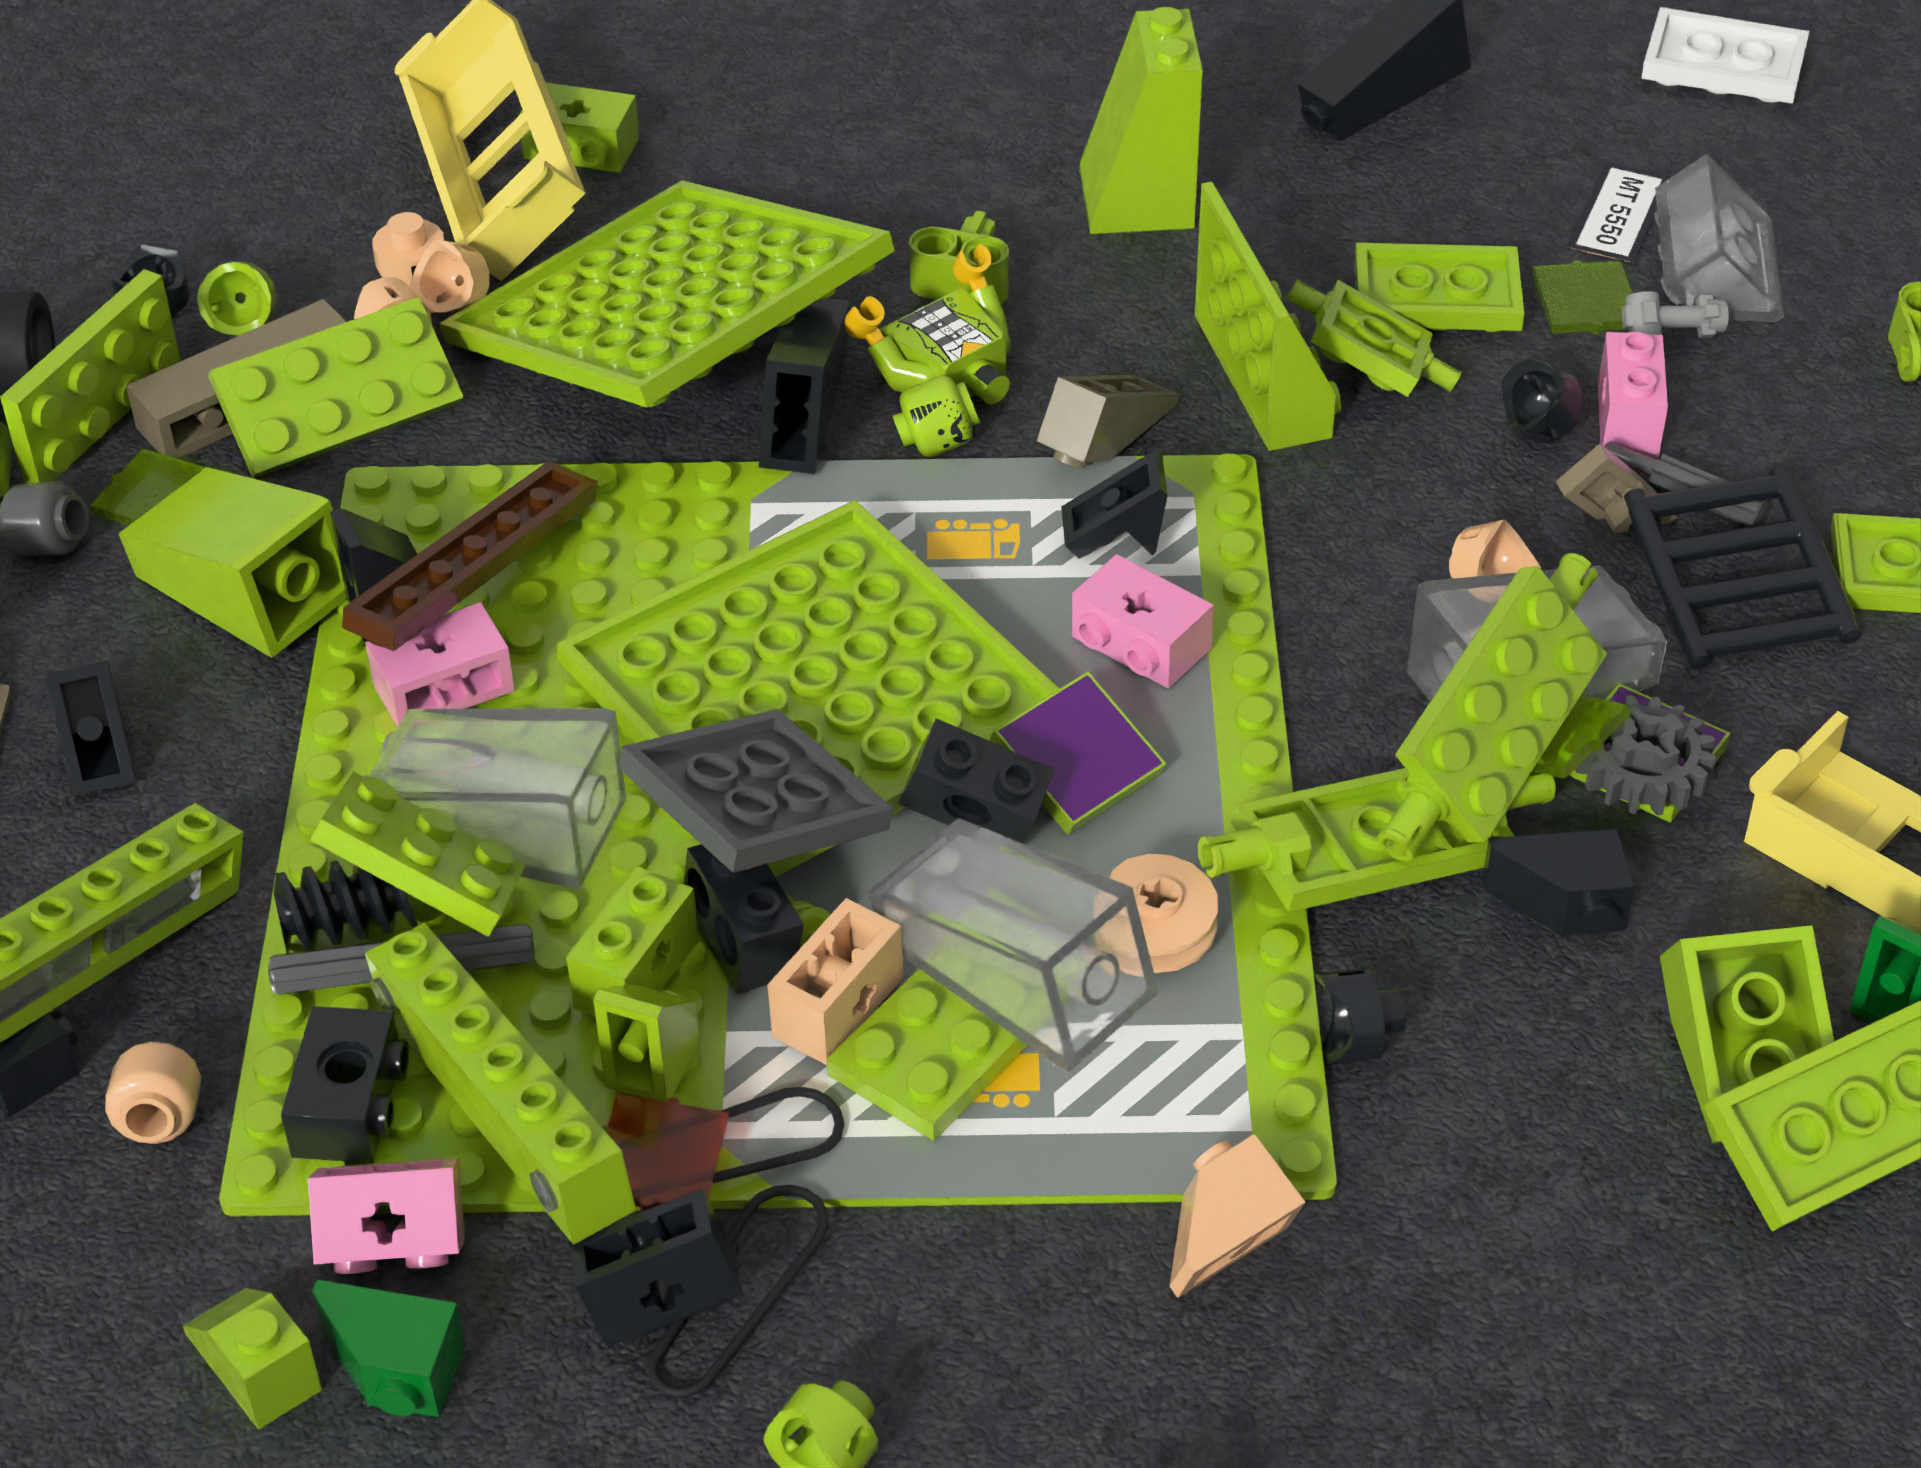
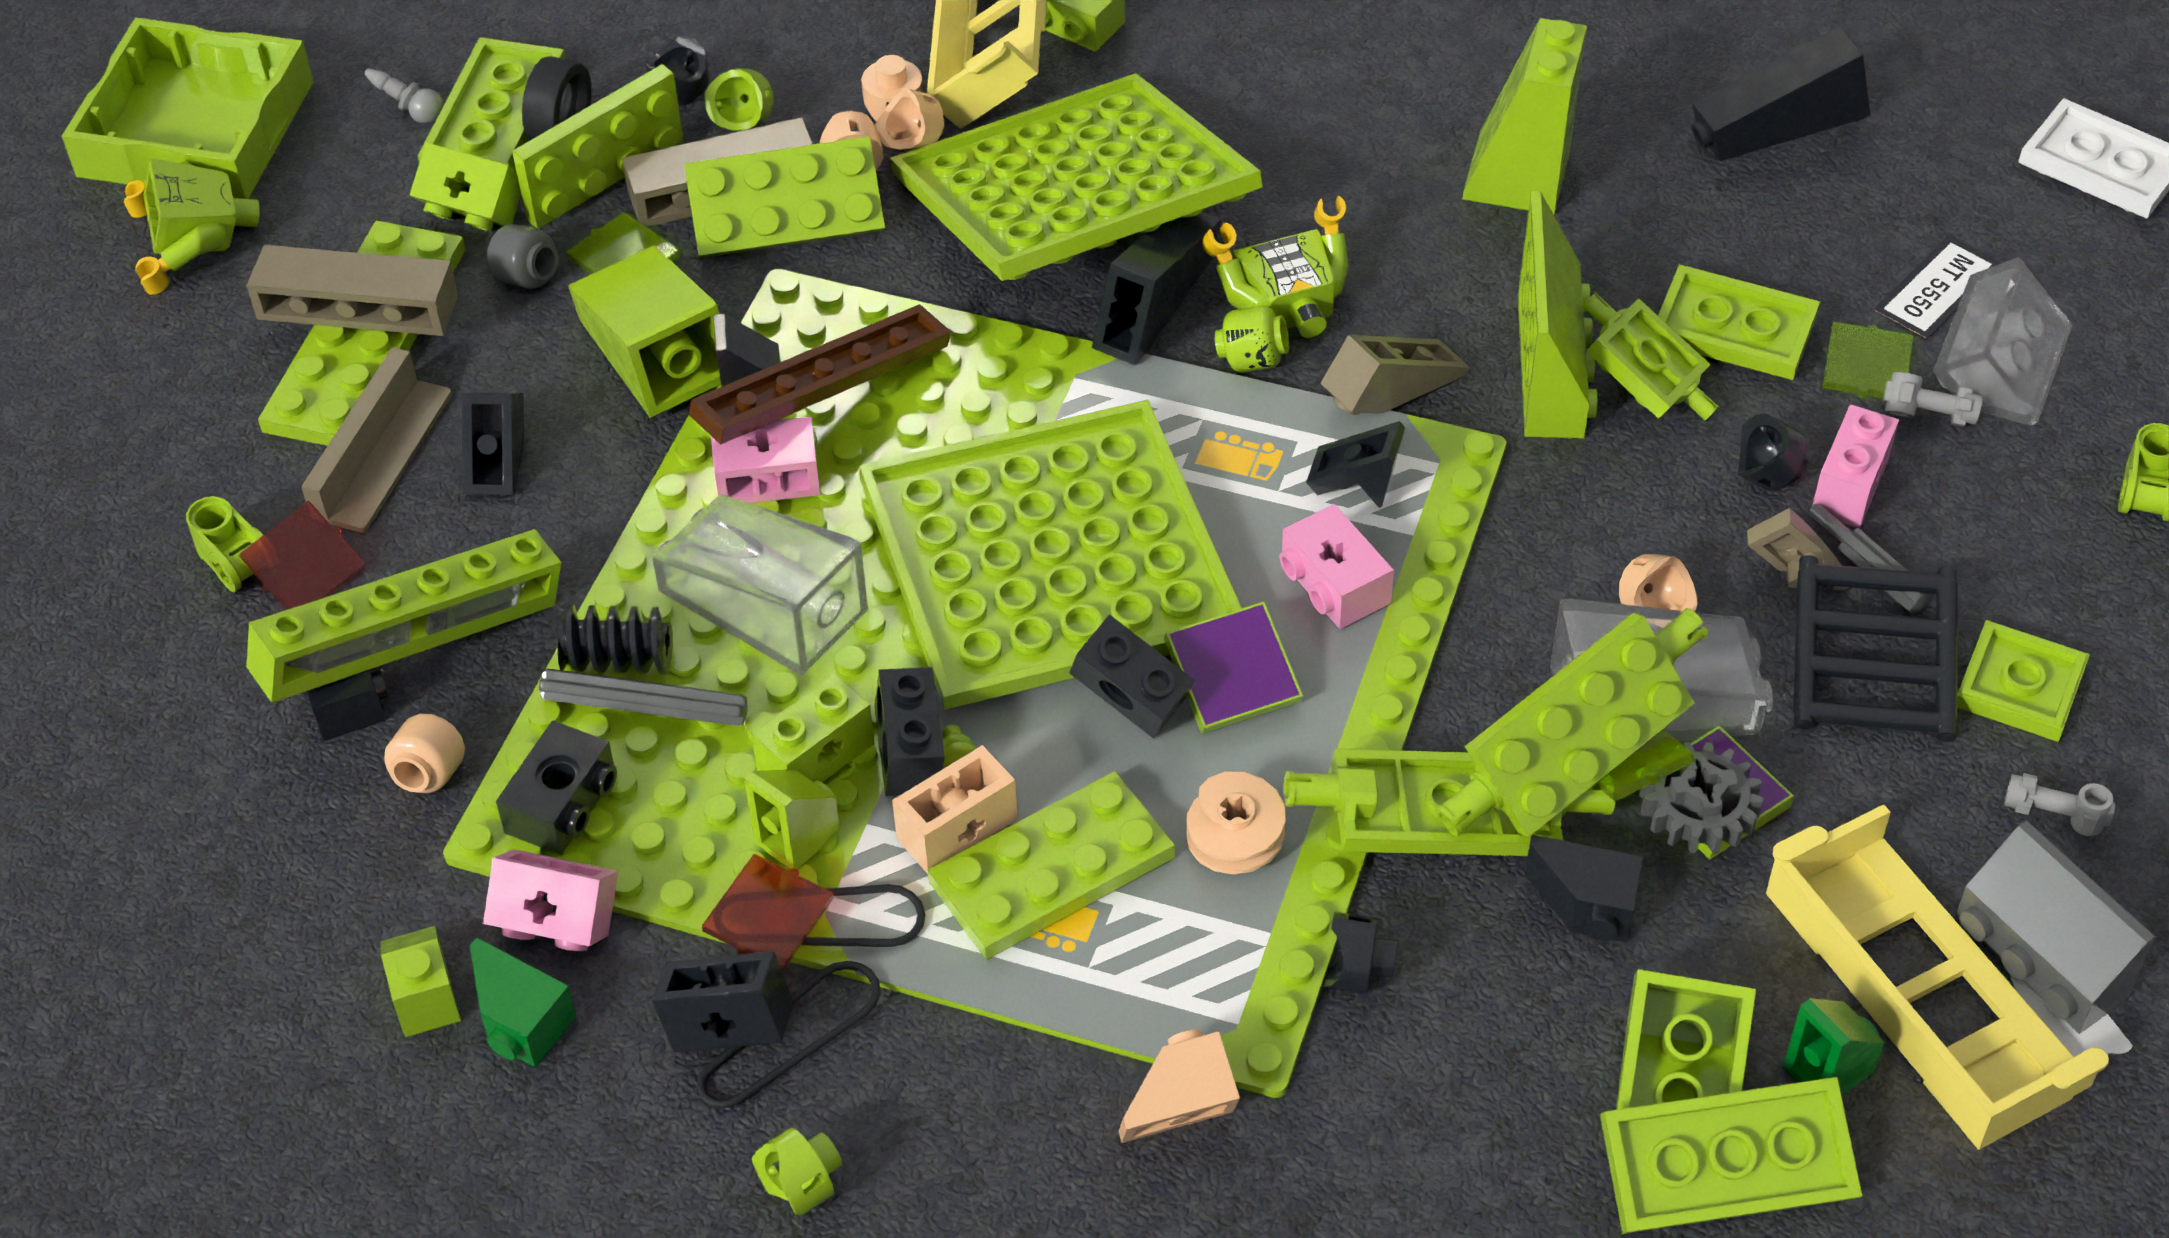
camera: 20 degrees right, 5 degrees up
(419, 852) = (676, 618): lime plate -> none
(502, 1084) = (663, 824): lime piece -> none
(755, 789) = (948, 635): dark grey plate -> none
(936, 248) = (1314, 183): lime beam -> none
(1022, 938) = (1105, 817): clear slope -> none

